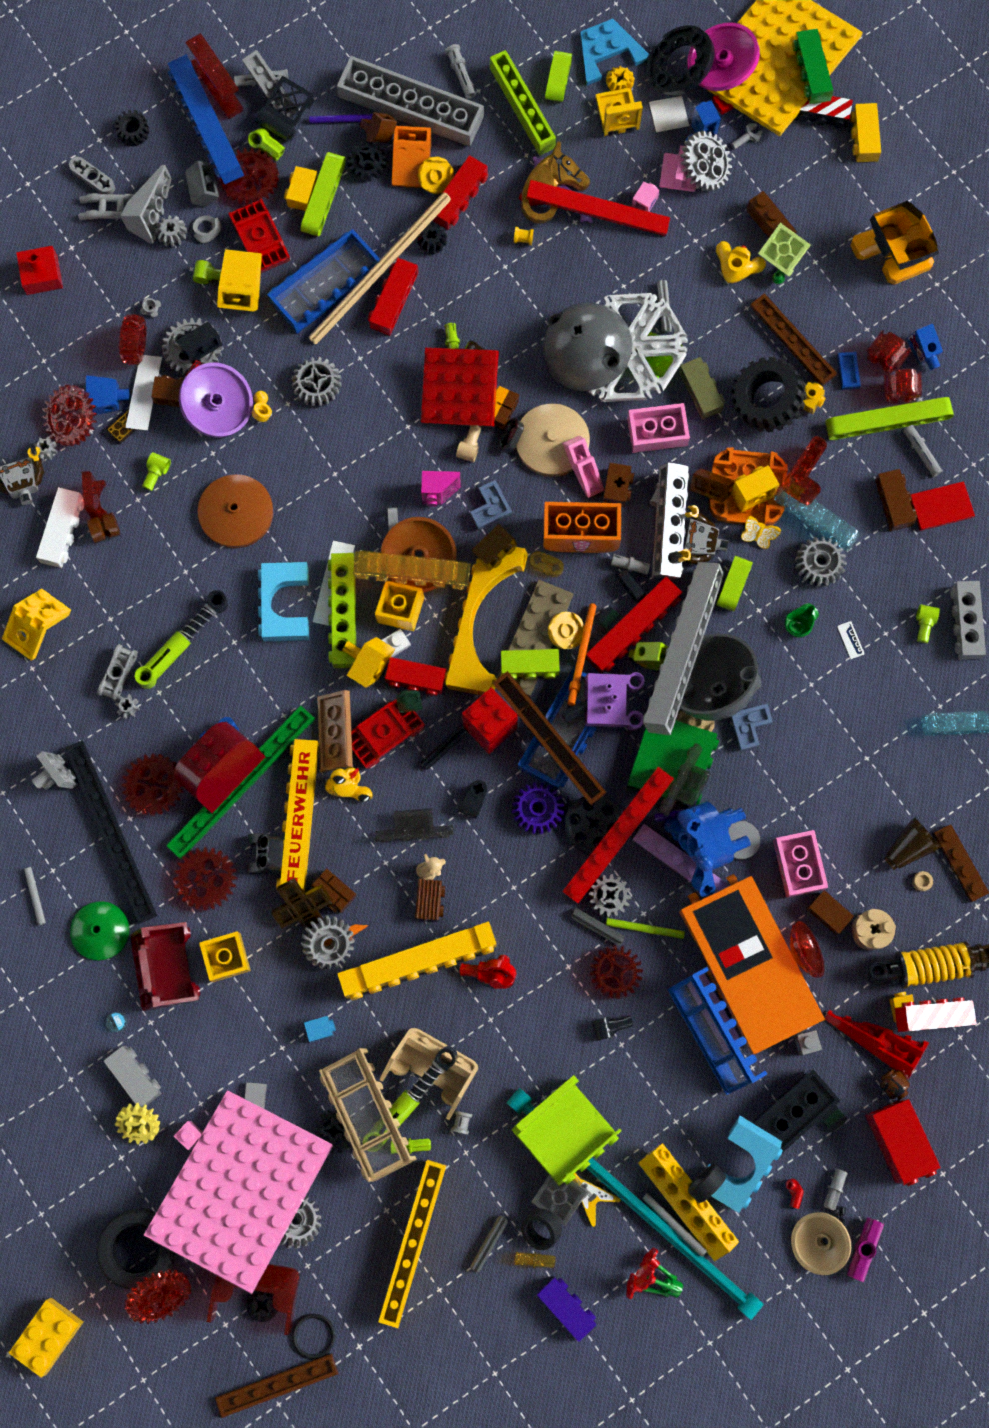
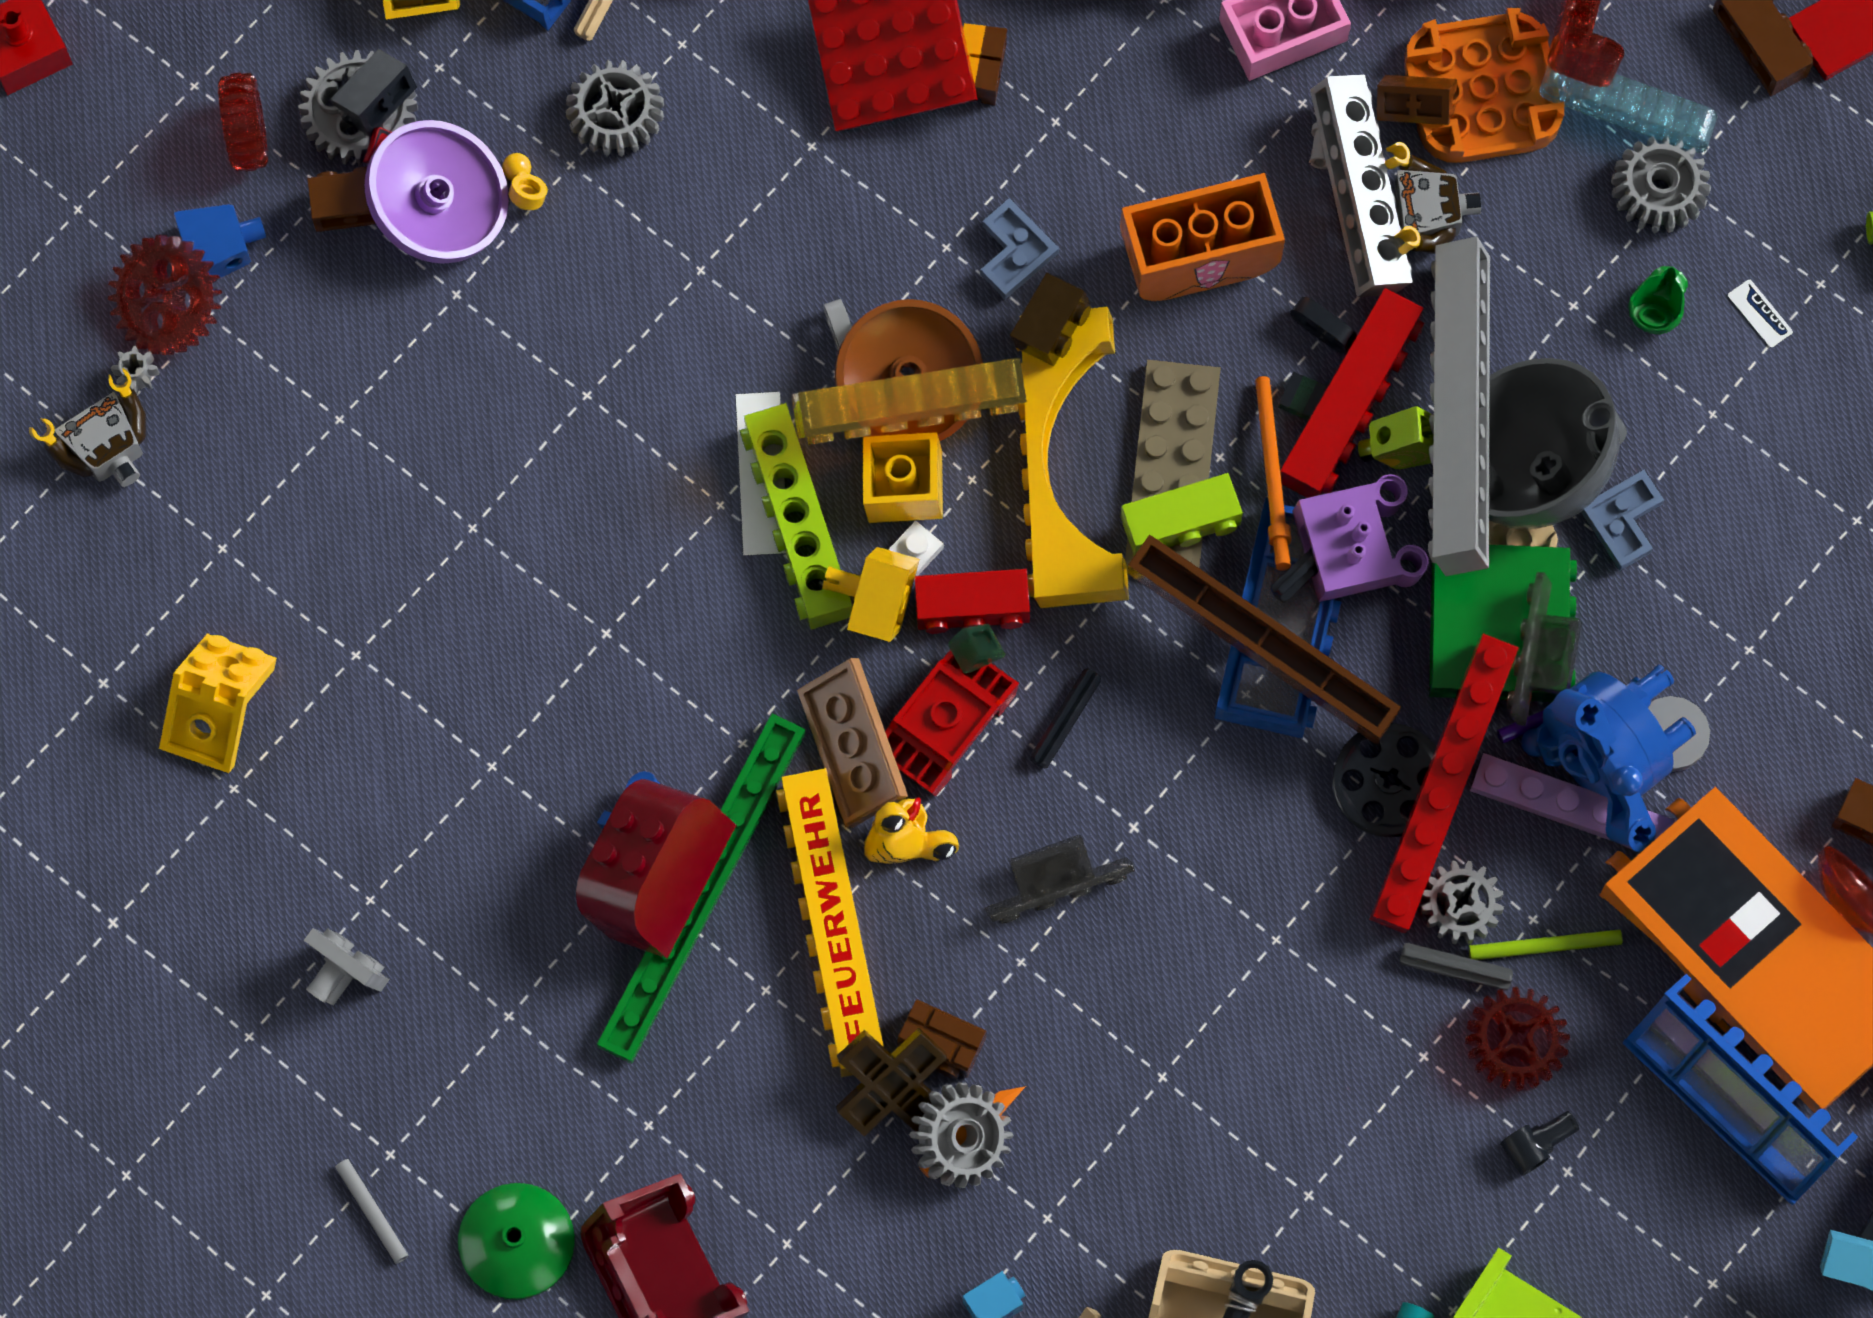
camera: 15 degrees left, 5 degrees down
(60, 528) = (209, 510): white brick -> none
(91, 495) = (252, 420): clear red piece -> none
(103, 527) = (293, 486): reddish brown wheel -> none
(111, 832) = (483, 1049): black plate -> none
(119, 430) = (276, 283): dark brown tile -> none
(121, 662) = (401, 775): light grey piece -> none
(130, 710) = (451, 810): light grey gear -> none
(141, 399) = (291, 217): white sticker -> none
(147, 302) = (252, 45): light grey plate -> none
(147, 802) = (535, 972): clear red gear -> none
(156, 467) = (358, 345): lime pin -> none
(179, 641) = (504, 658): piece -> none
(197, 863) = (716, 1107): clear red gear -> none
(225, 956) = (774, 1217): yellow brick -> none
(239, 526) = (542, 418): dark orange dish -> none
(268, 853) = (797, 1002): black piece -> none
(272, 578) = (675, 580): medium azure arch -> none
(417, 960) = (1142, 1120): yellow brick -> none
(429, 900) = (1126, 1005): reddish brown brick -> none
(431, 868) = (1107, 953): tan animal -> none
(438, 486) = (908, 237): dark pink slope -> none
(468, 448) = (940, 152): tan pin -> none
(473, 802) = (1153, 800): black piece -> none
(490, 720) = (1142, 638): red brick -> none
(492, 972) = (1286, 1104): red pin -> none
(510, 435) = (1012, 110): black beam -> none
(533, 819) = (1282, 757): dark purple gear -> none
(544, 435) = (1092, 97): tan dish -> none
(544, 568) = (1153, 319): clear yellow beam -> none
(566, 630) = (1228, 438): yellow tile -> none
(583, 466) = (1167, 128): bright pink slope -> none
(618, 474) = (1236, 126): reddish brown brick -> none
(630, 564) = (1310, 285): light grey pin -> none
(734, 583) = (1514, 268): lime beam -> none
(754, 488) = (1499, 82): yellow brick -> none
(759, 532) = (1531, 162): yellow animal -> none
(800, 864) = (1796, 744): bright pink brick -> none

